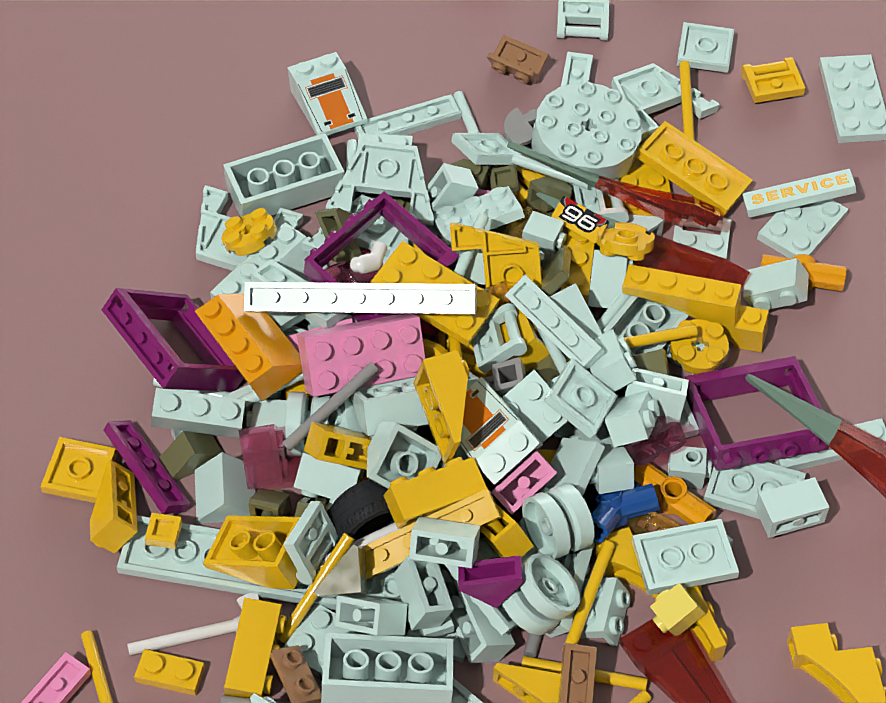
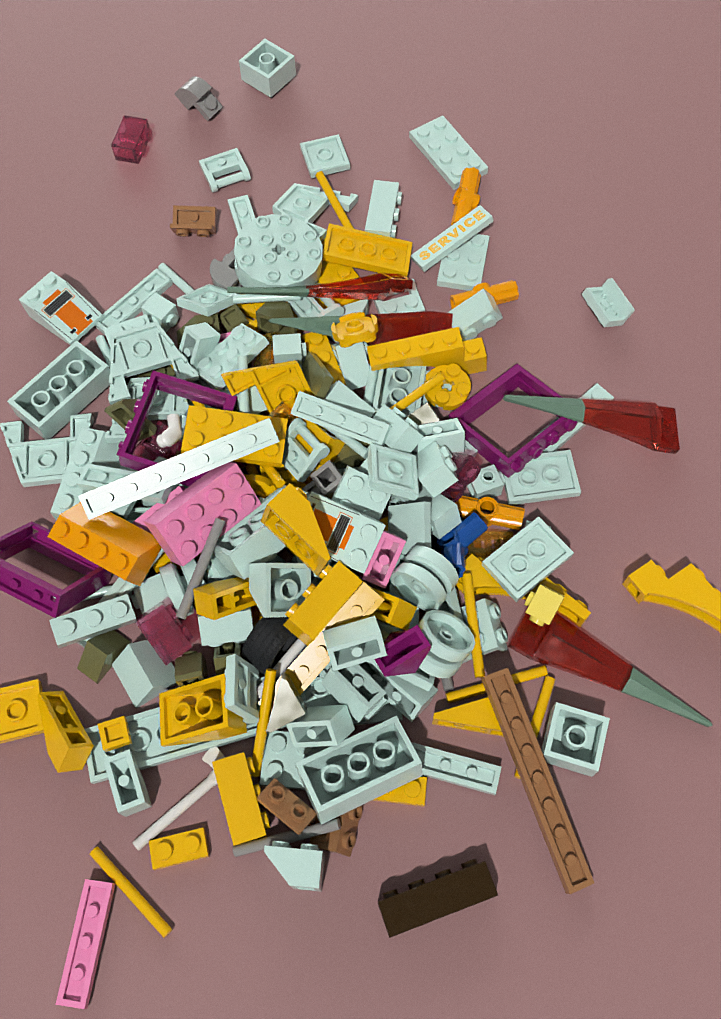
camera: 25 degrees left, 10 degrees up
(146, 467) = (71, 682): magenta plate -> none
(151, 584) = (127, 783): none -> light aqua slope
(248, 232) = (60, 439): yellow plate -> none
(430, 141) = (161, 310): none -> light aqua brick
(579, 218) = (310, 326): sticker -> none
(739, 130) = (383, 208): none -> light aqua brick
(773, 80) = (388, 165): yellow plate -> none
(791, 506) = (578, 481): light aqua brick -> none
(846, 151) = (466, 195): none -> light orange piece

